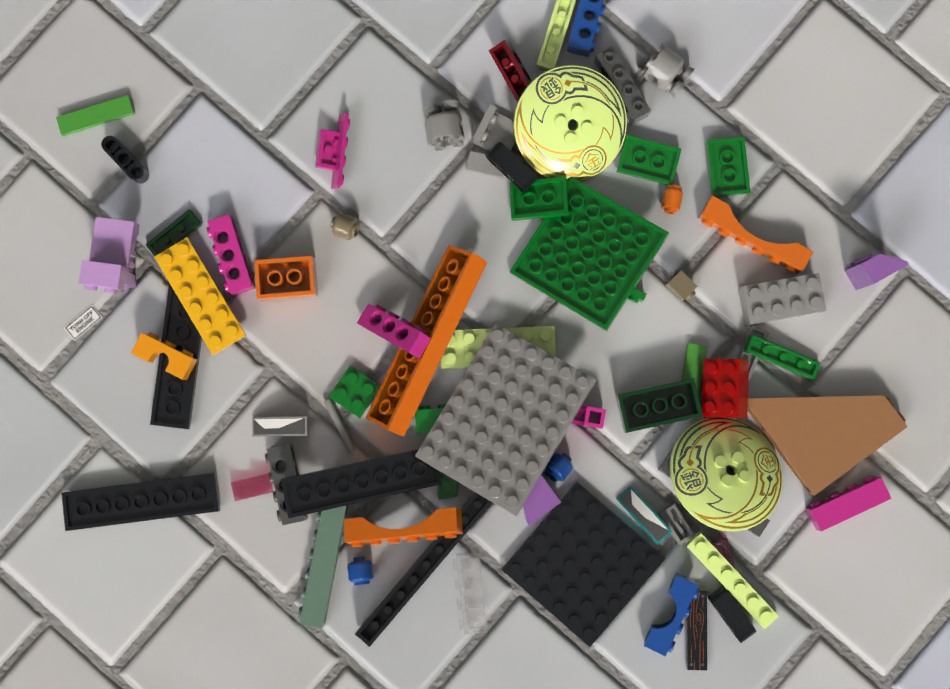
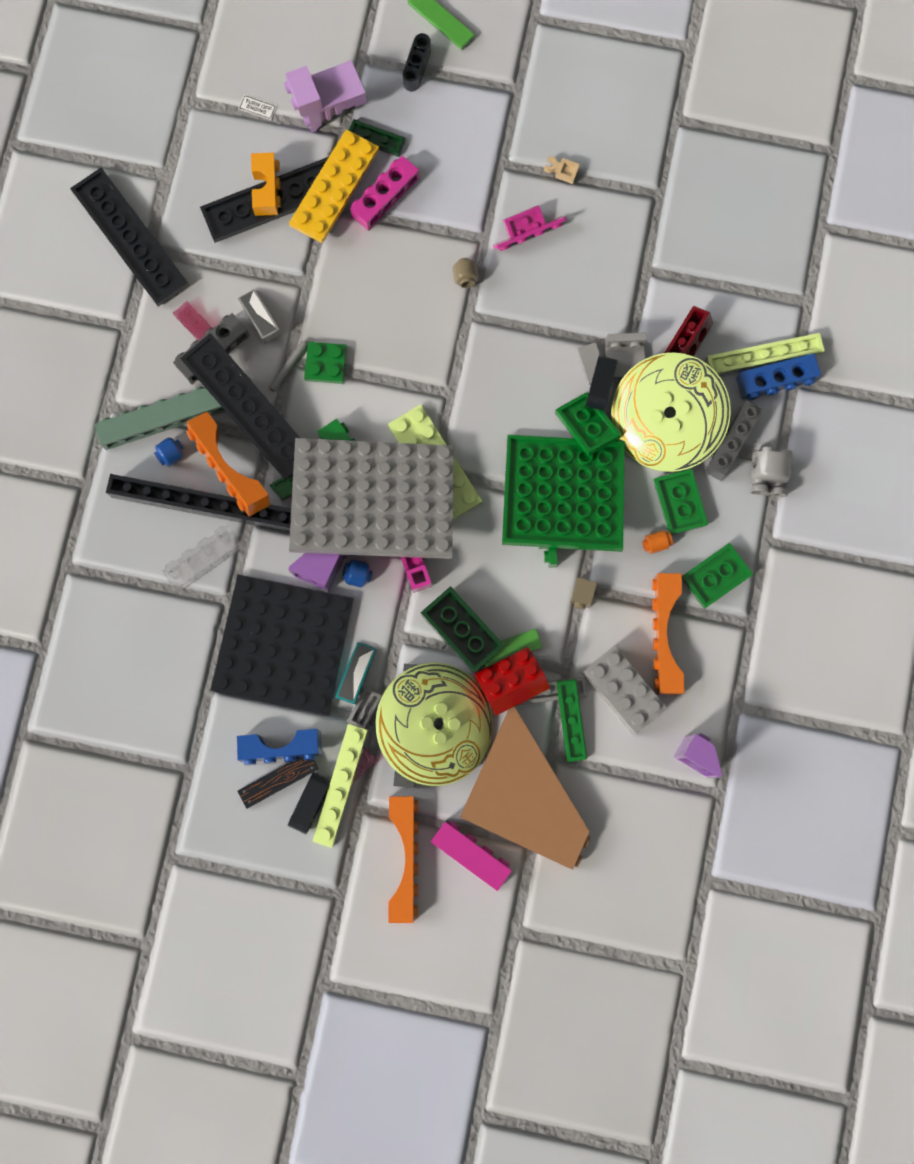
camera: 55 degrees right, 5 degrees down
(285, 278) = (390, 247): orange brick -> none
(300, 87) = (565, 170): none -> tan plate
(393, 330) = (397, 360): dark pink brick -> none
(439, 316) = (404, 394): orange brick -> none
(444, 127) = (602, 307): light grey piece -> none
(855, 582) = (401, 905): none -> orange arch

